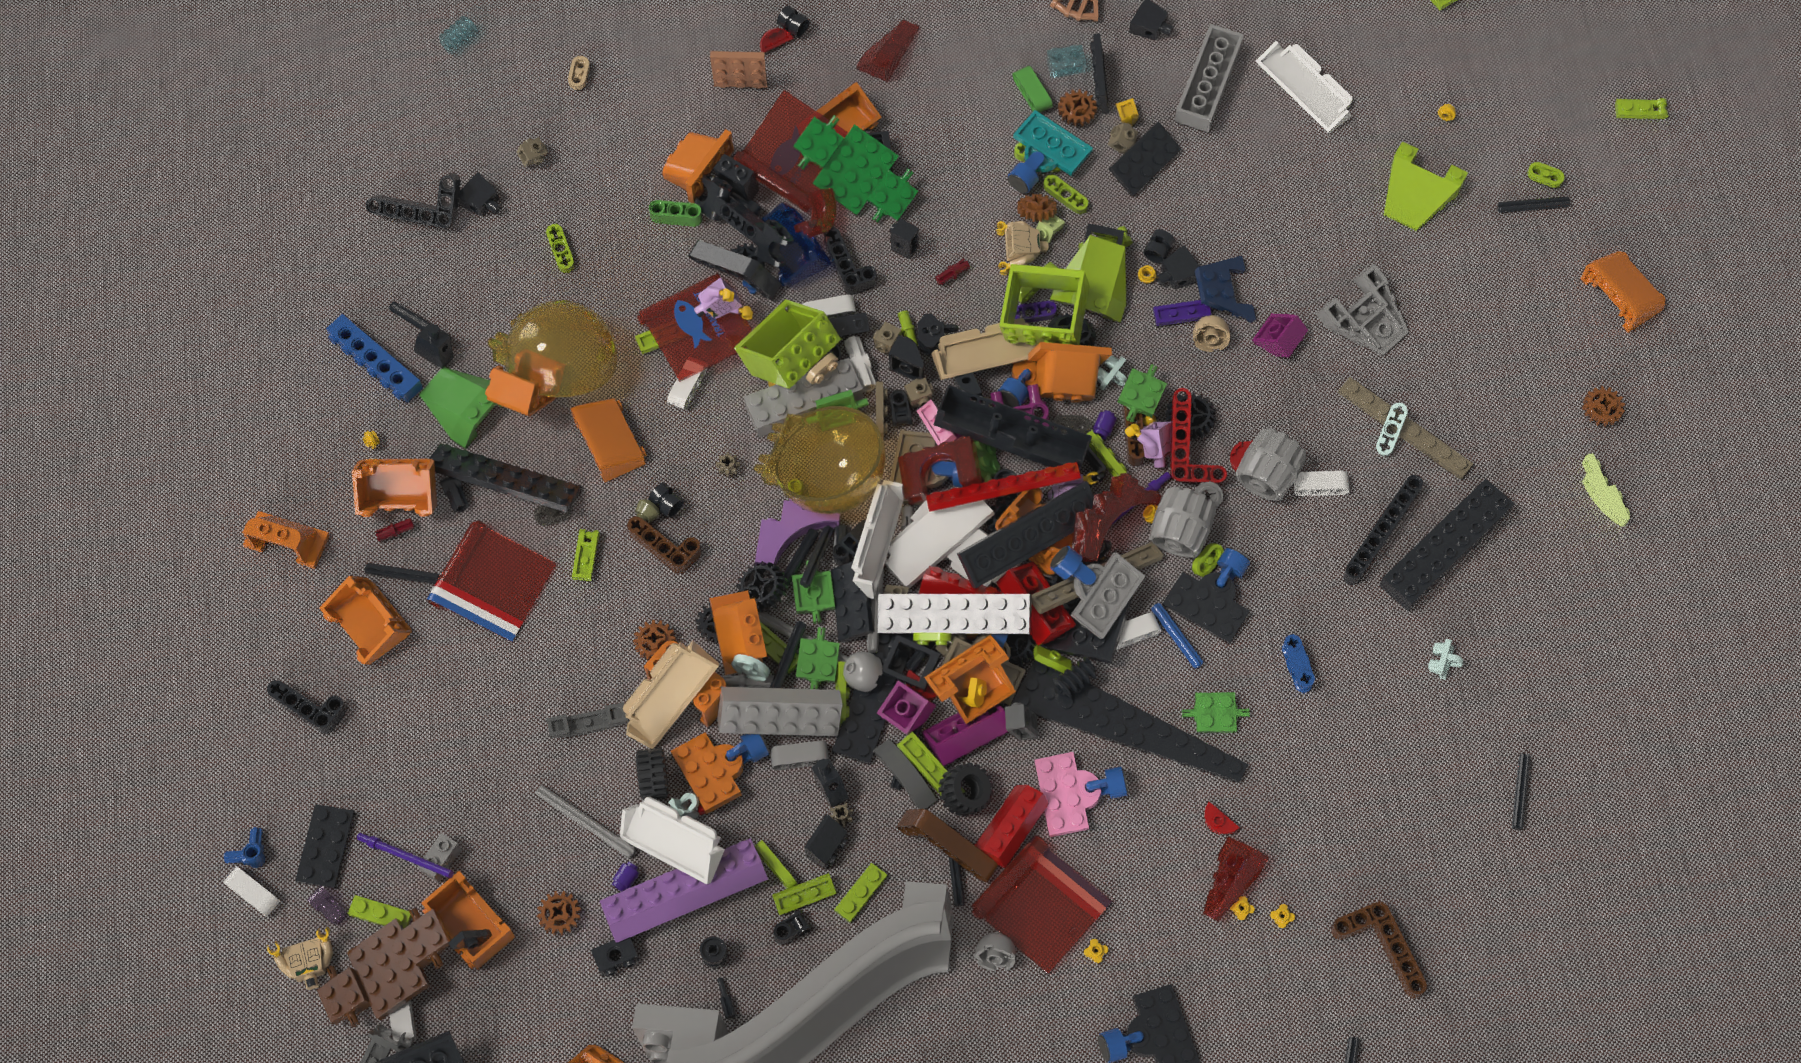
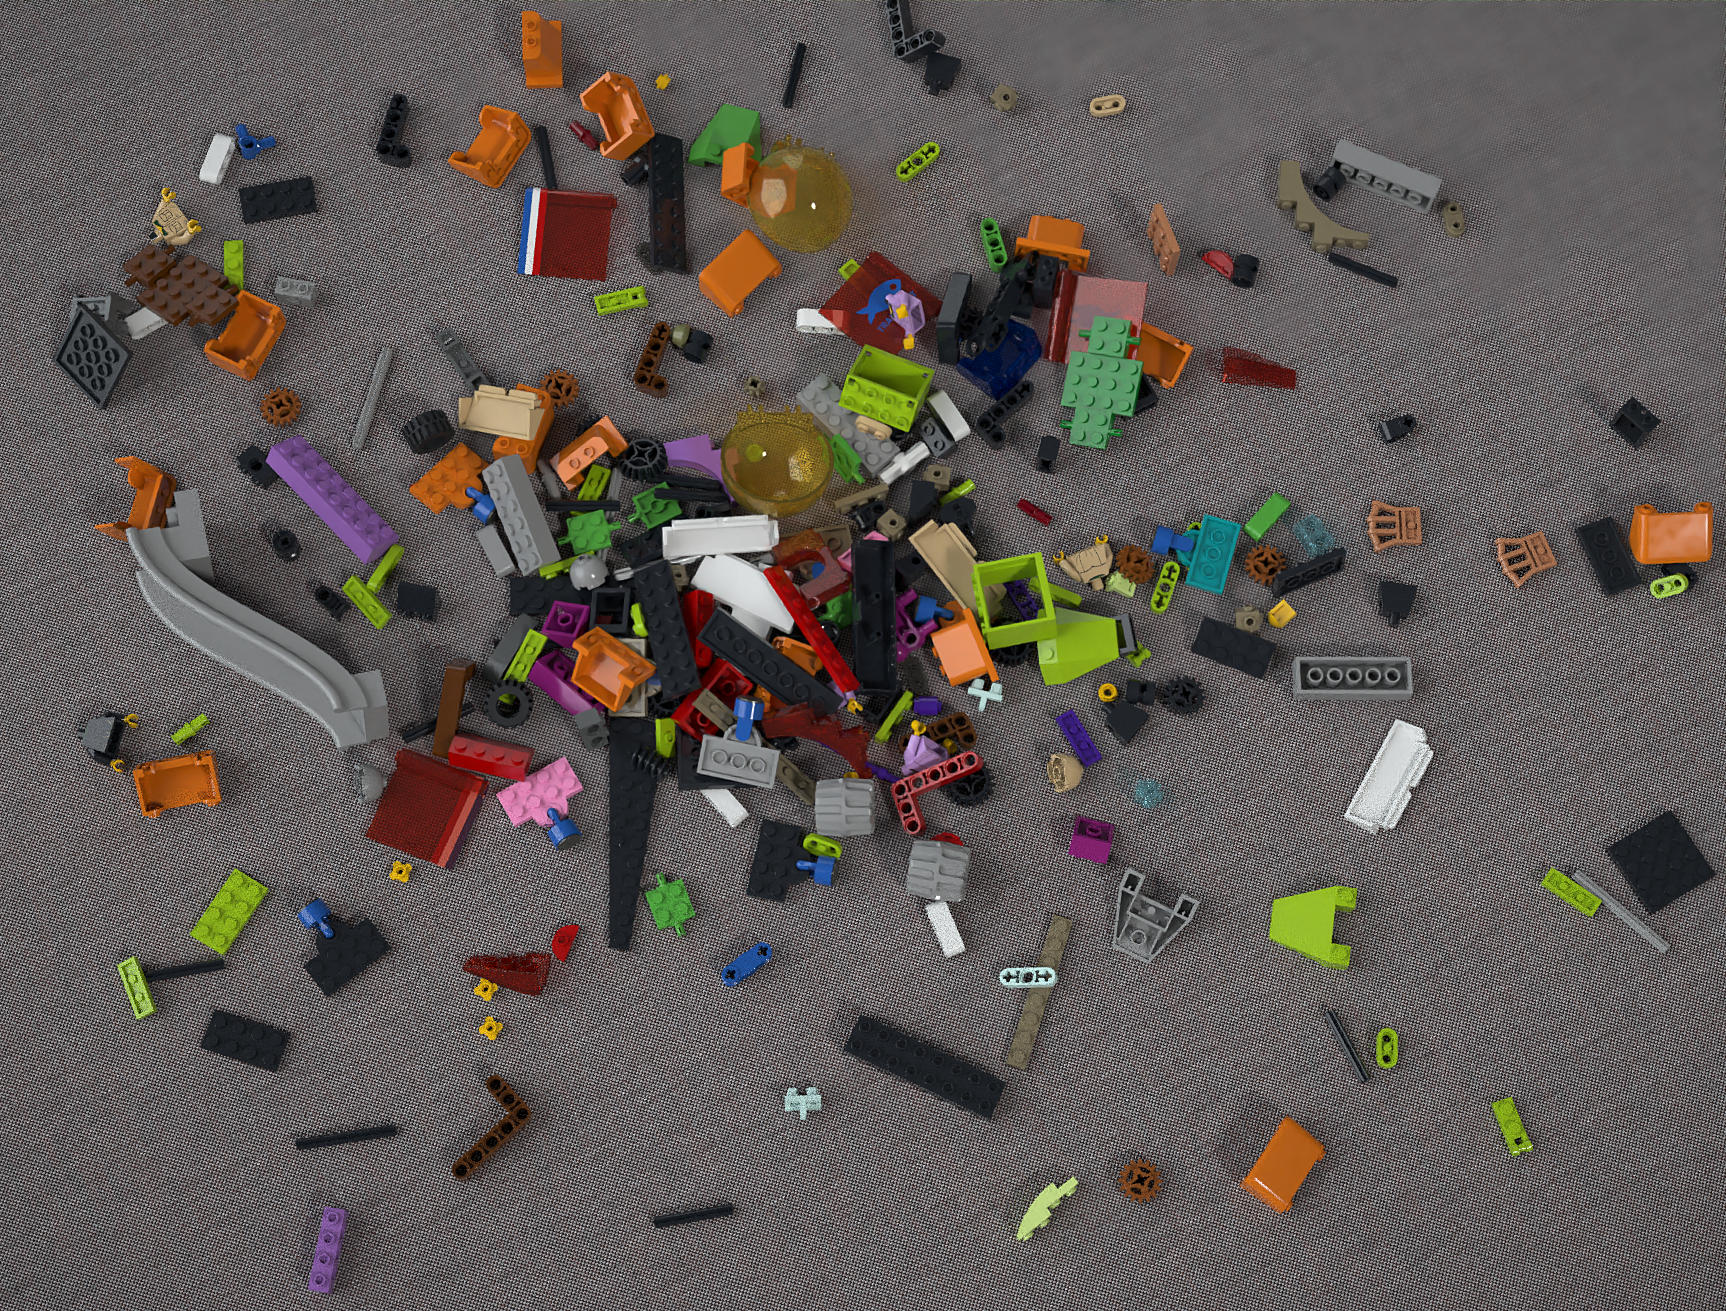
camera: 65 degrees right, 5 degrees up
(324, 903) = (227, 218): clear purple piece -> none
(344, 327) = (728, 91): blue brick -> none
(376, 843) = (292, 237): dark purple bar -> none
(434, 346) = (771, 90): black torso -> none
(470, 939) = (222, 340): black plate -> none
(625, 876) = (331, 448): dark purple brick -> none
(672, 838) = (370, 469): white slope -> none
(683, 807) = (406, 469): light aqua hips -> none
(726, 1000) = (249, 573): black axle -> none
(752, 667) = (554, 475): light aqua tile -> none
(823, 213) = (1039, 373): clear red arch -> none
(824, 776) = (479, 580): black torso -> none
(838, 810) = (454, 609): dark tan gear -> none
(860, 893) = (386, 650): lime plate -> none
(976, 693) = (600, 676): yellow plate -> none
(1142, 393) = (969, 726): bright green plate -> none
(1174, 214) = (1192, 693): none -> black gear
(1177, 636) = (735, 844): blue axle -> none
(1217, 288) = (1116, 759): dark blue wing -> none
(1217, 494) = (881, 824): light grey gear -> none
(1255, 274) = (1148, 793): none -> clear light blue brick
(1379, 537) = (925, 1009): black beam -> none
(1447, 112) = (1417, 926): yellow plate -> none

